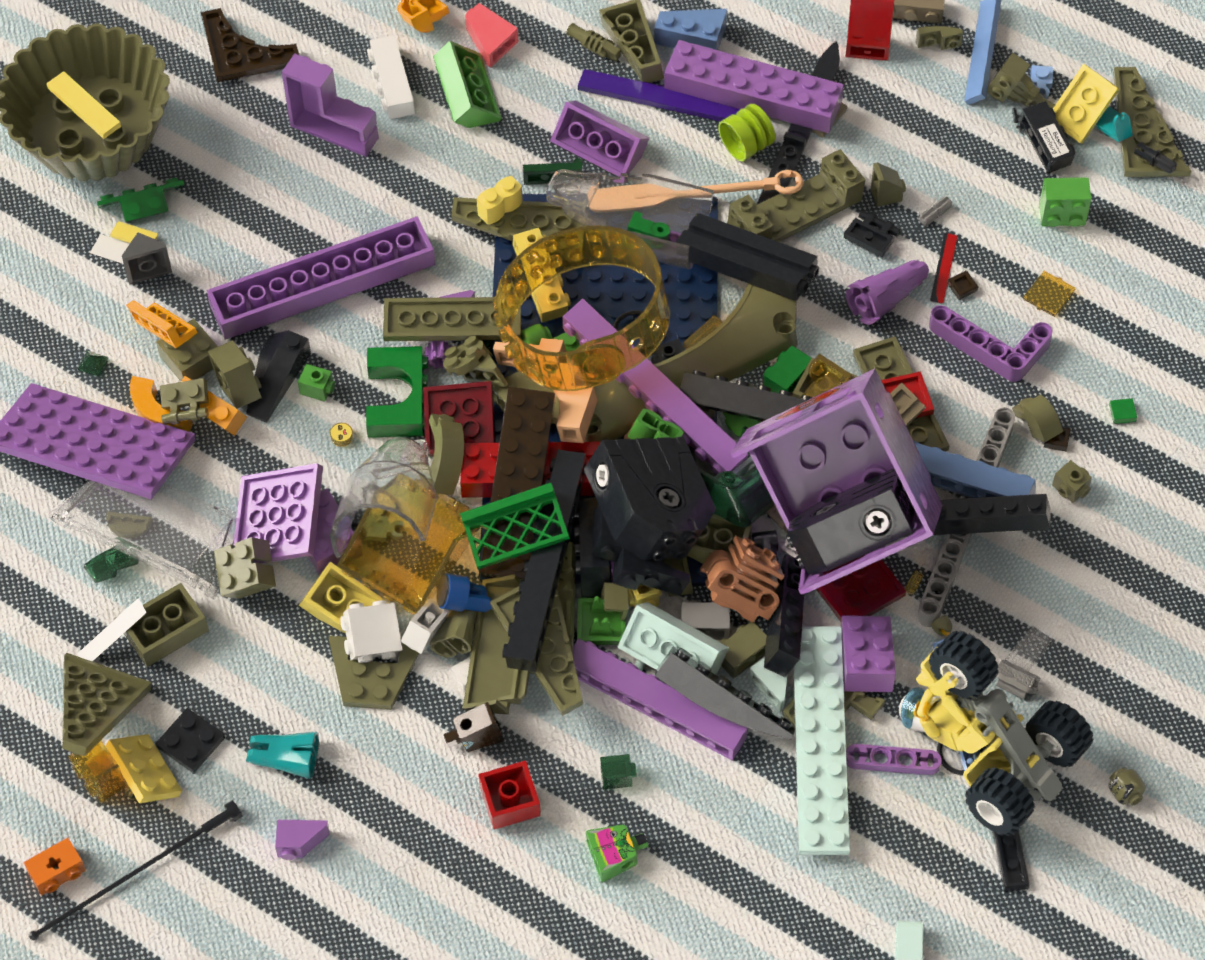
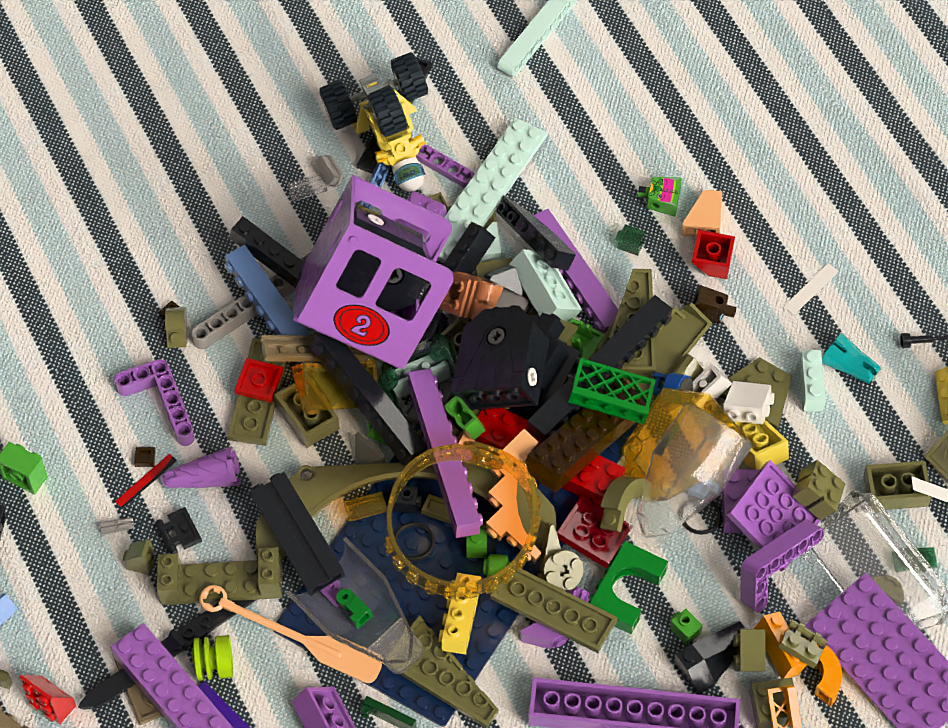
camera: 150 degrees left, 0 degrees up
(190, 740) = (913, 405): black plate -> none
(248, 472) = (773, 557): none -> medium lavender beam
(299, 837) = (868, 300): medium lavender slope -> none
(316, 702) = (812, 381): none -> light aqua brick
(341, 434) = (687, 578): tile -> none
(376, 829) = (811, 289): none -> white sticker
(499, 200) = (457, 689): light yellow brick -> none
(547, 848) = (704, 214): none -> light nougat slope
(723, 624) = (507, 277): none -> slope
(786, 371) = (325, 449): green brick -> none
(1049, 293) = (87, 419): clear yellow piece -> none
(1072, 481) = (190, 270): olive brick -> none
(1123, 411) = (112, 307): green tile -> none
(1127, 786) = (313, 77): olive head -> none

